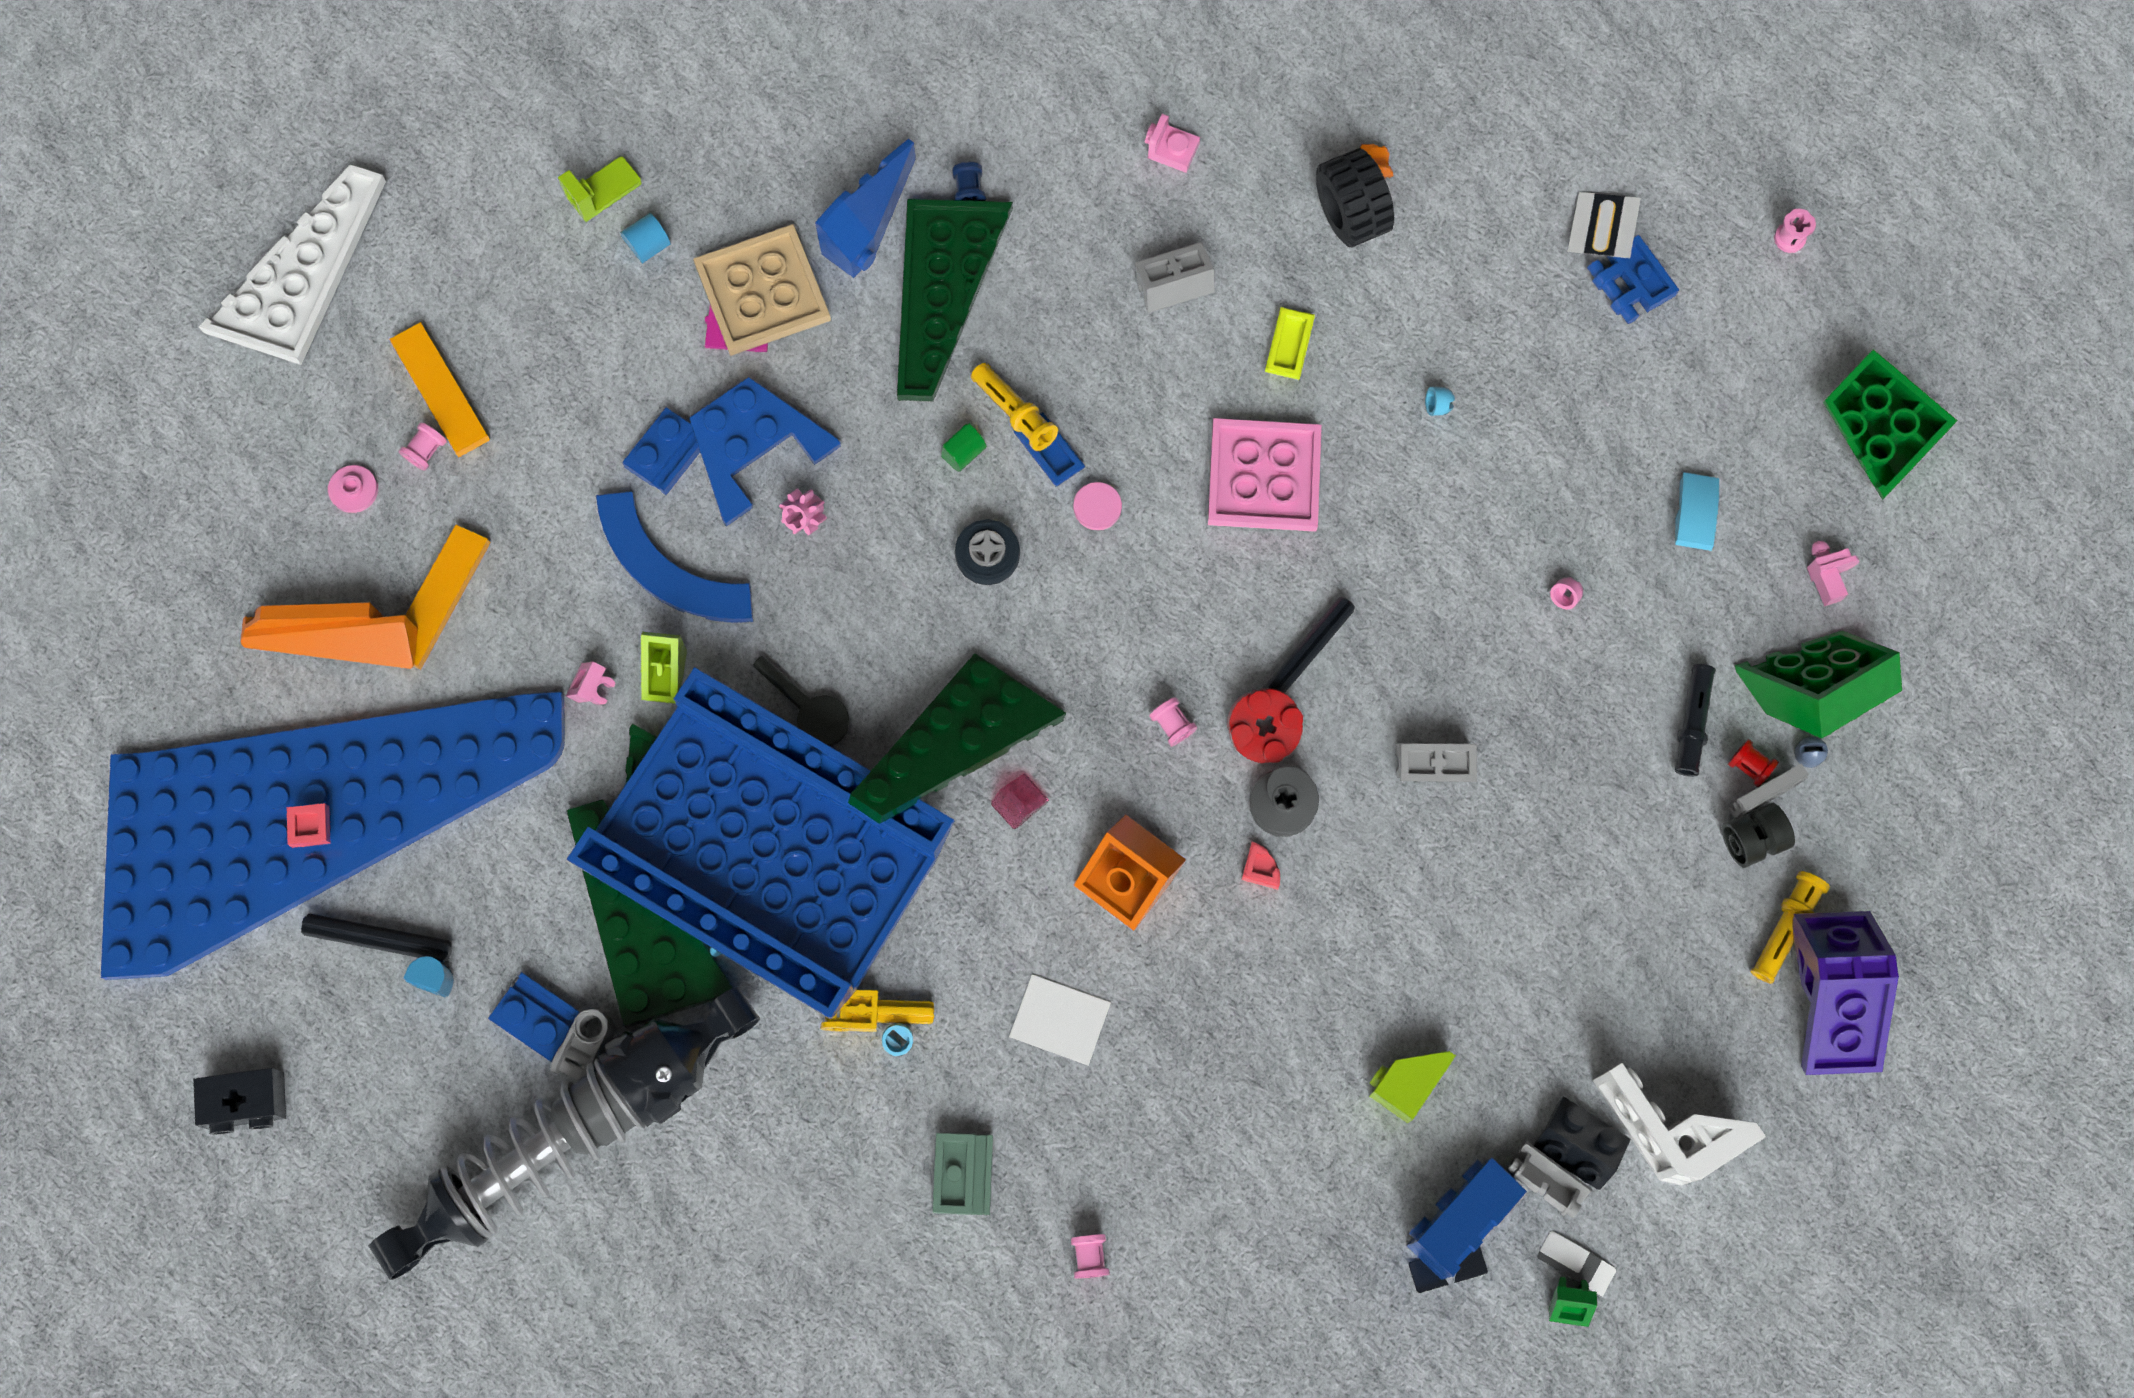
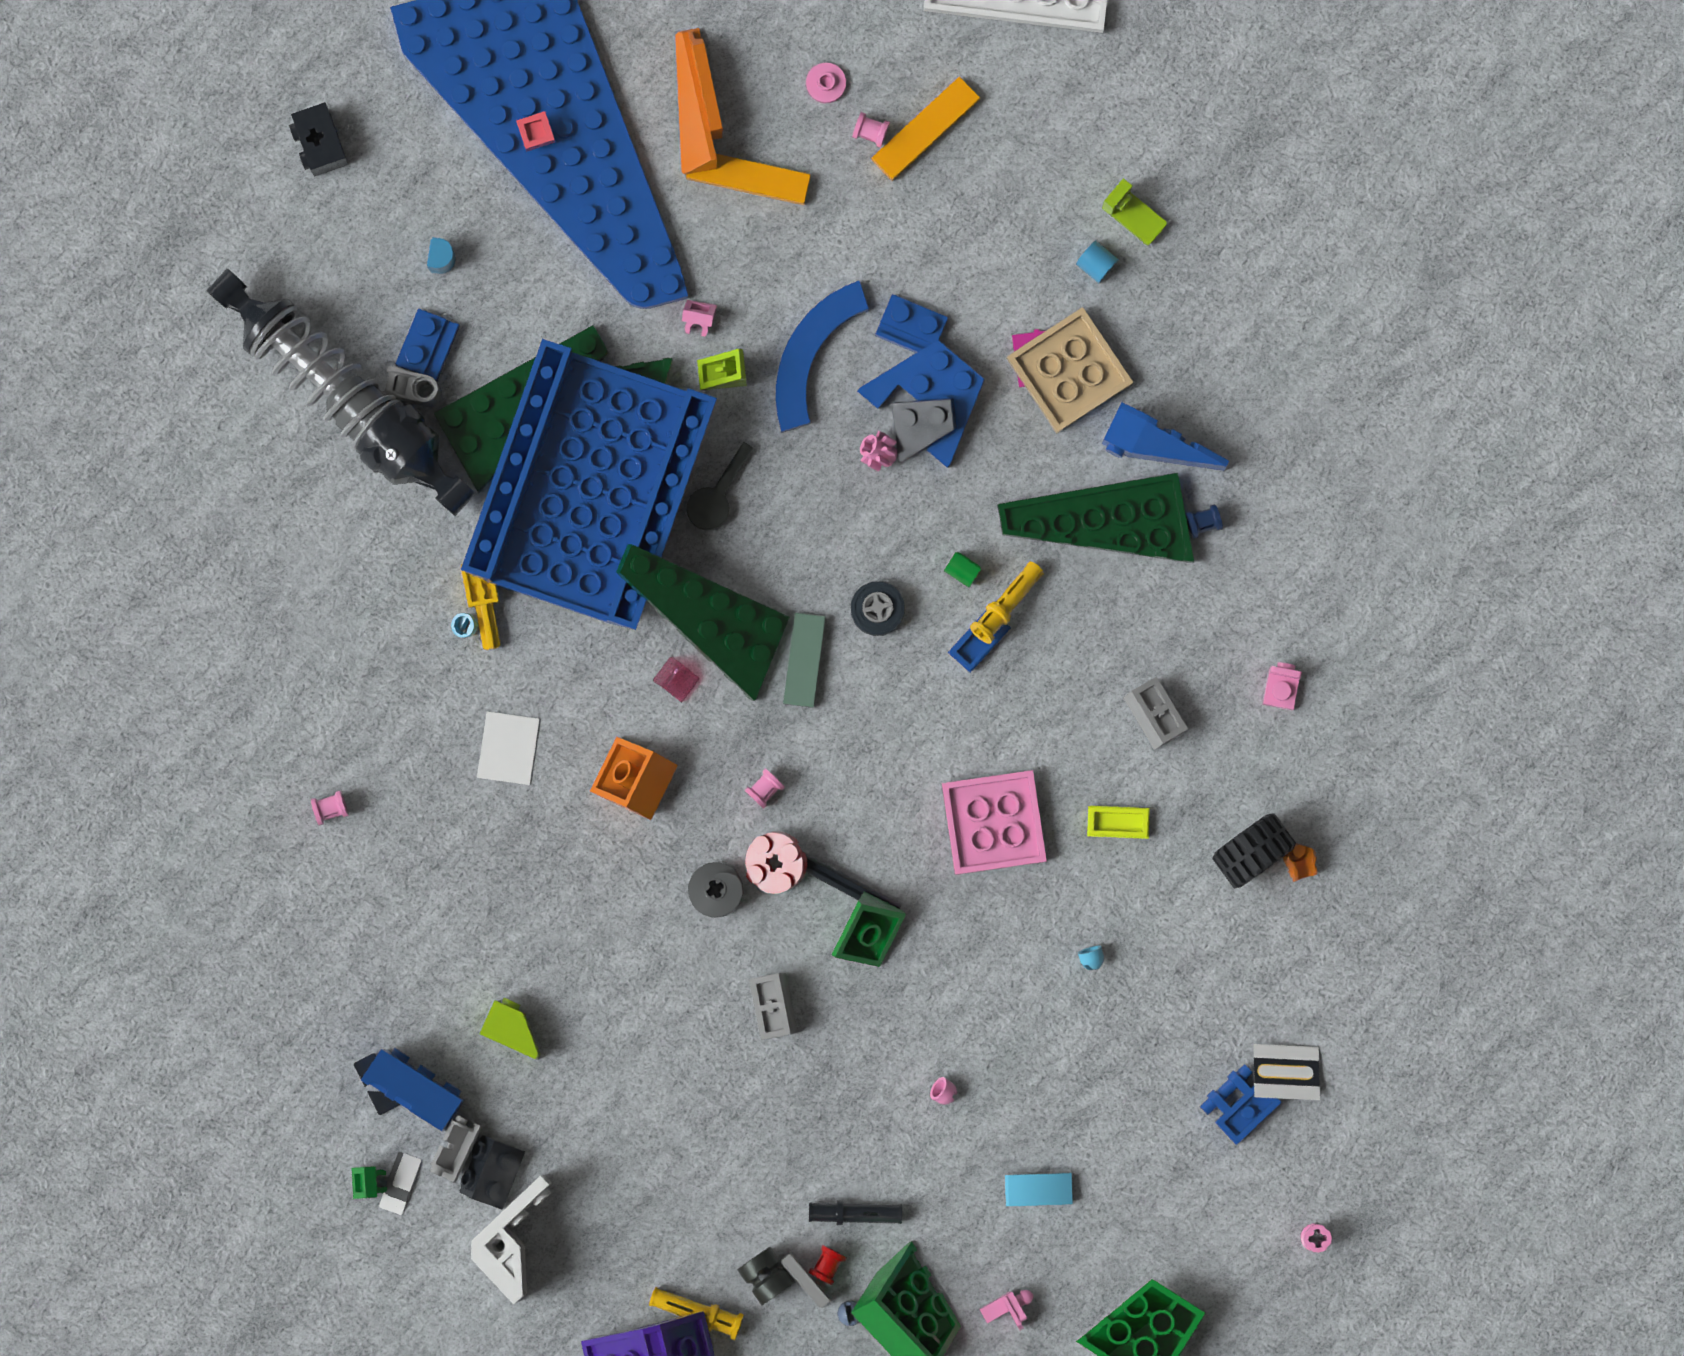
camera: 80 degrees right, 10 degrees up
(375, 937) = (463, 206): black axle -> none
(783, 455) = (921, 424): none -> wing
(963, 1174) = (372, 698): sand green plate -> none
(1029, 648) = (804, 660): none -> sand green tile
(1097, 506) = (937, 690): bright pink piece -> none
(1261, 868) = (661, 882): coral tile -> none
(1365, 636) = (869, 931): none -> green slope

